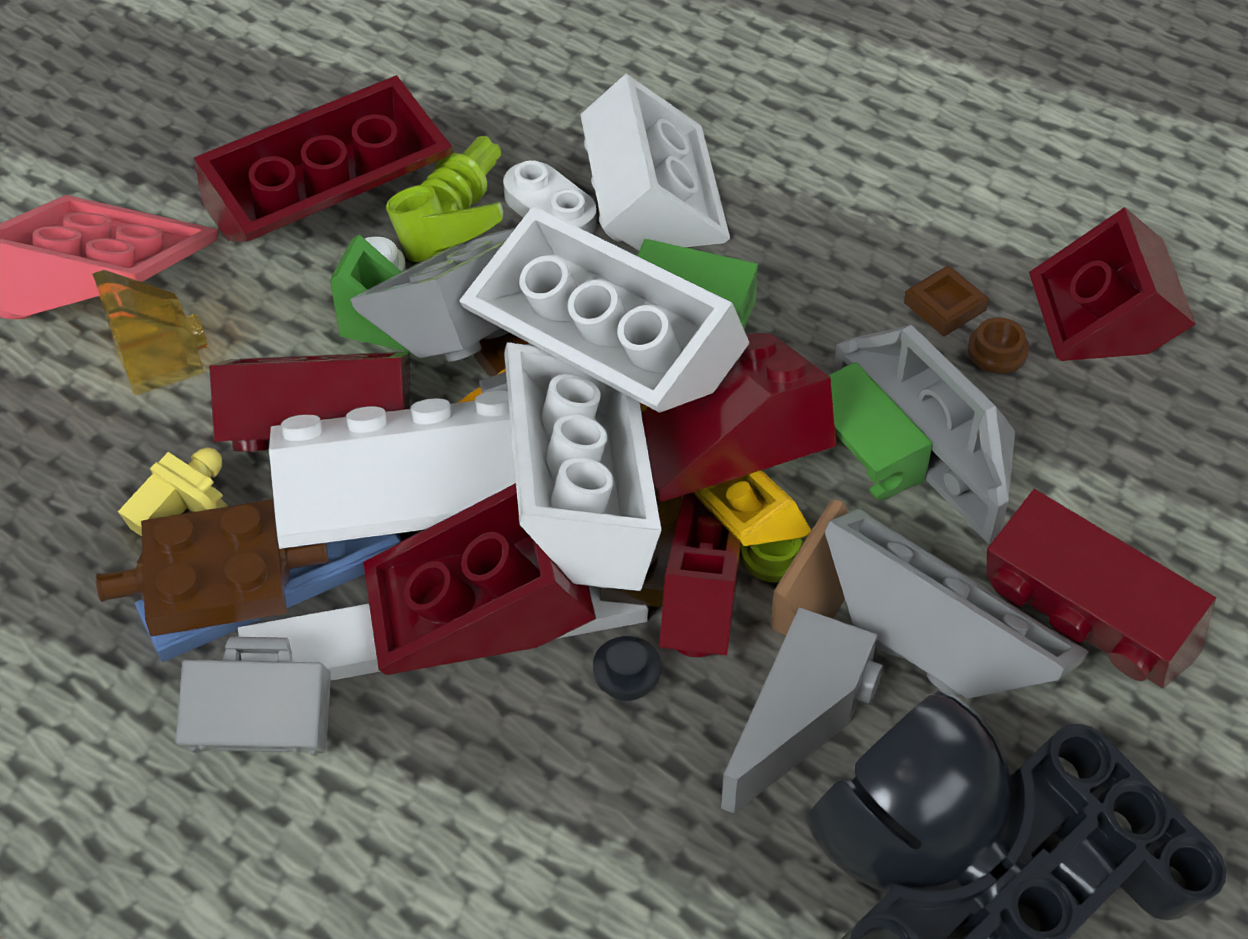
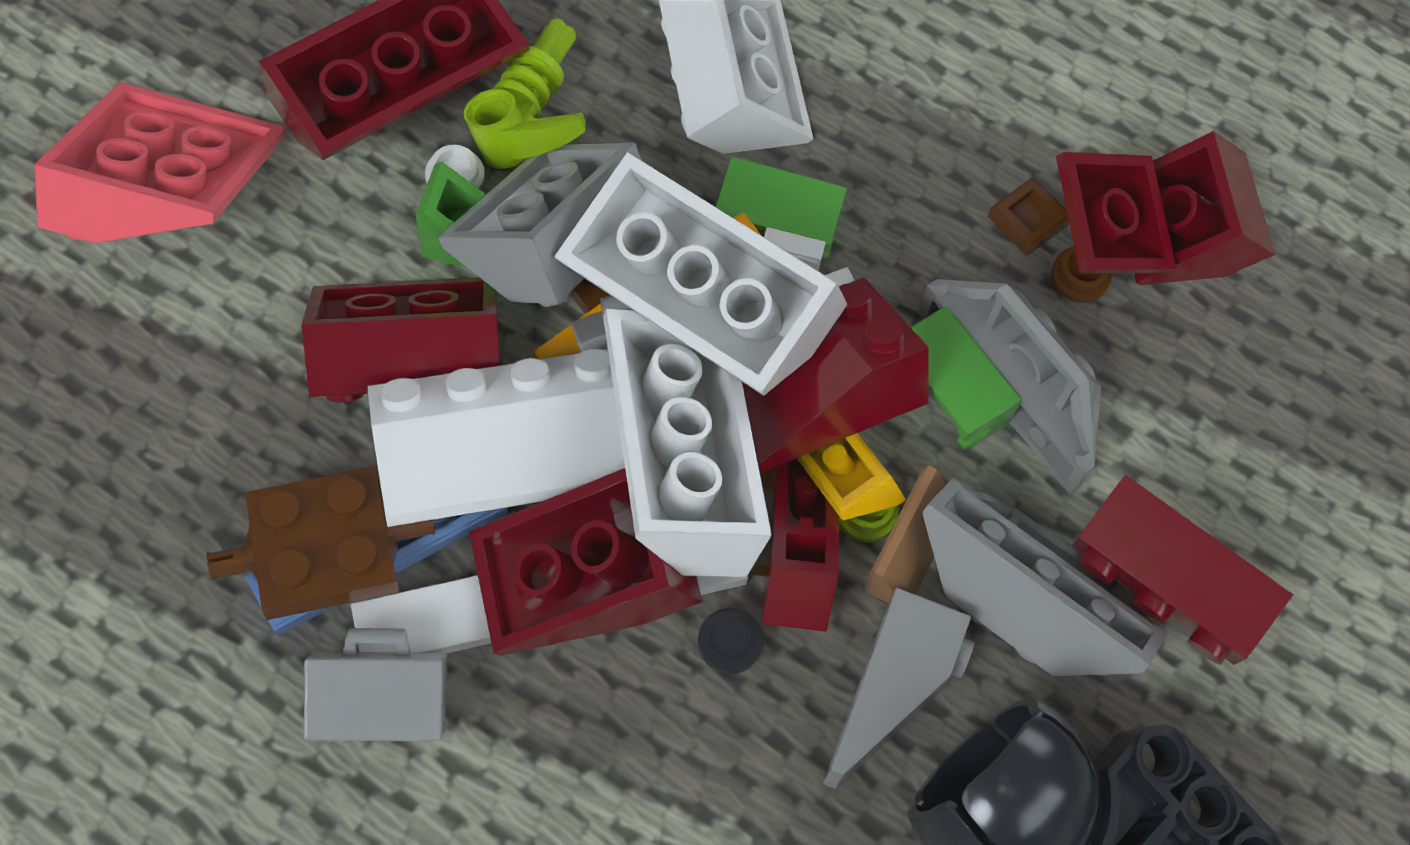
camera: 10 degrees left, 15 degrees up
(150, 332) = (232, 267): clear yellow slope -> none
(175, 488) = (272, 447): light yellow piece -> none
(545, 188) = (624, 92): white plate -> none
(1026, 278) = (1115, 213): none -> dark red slope

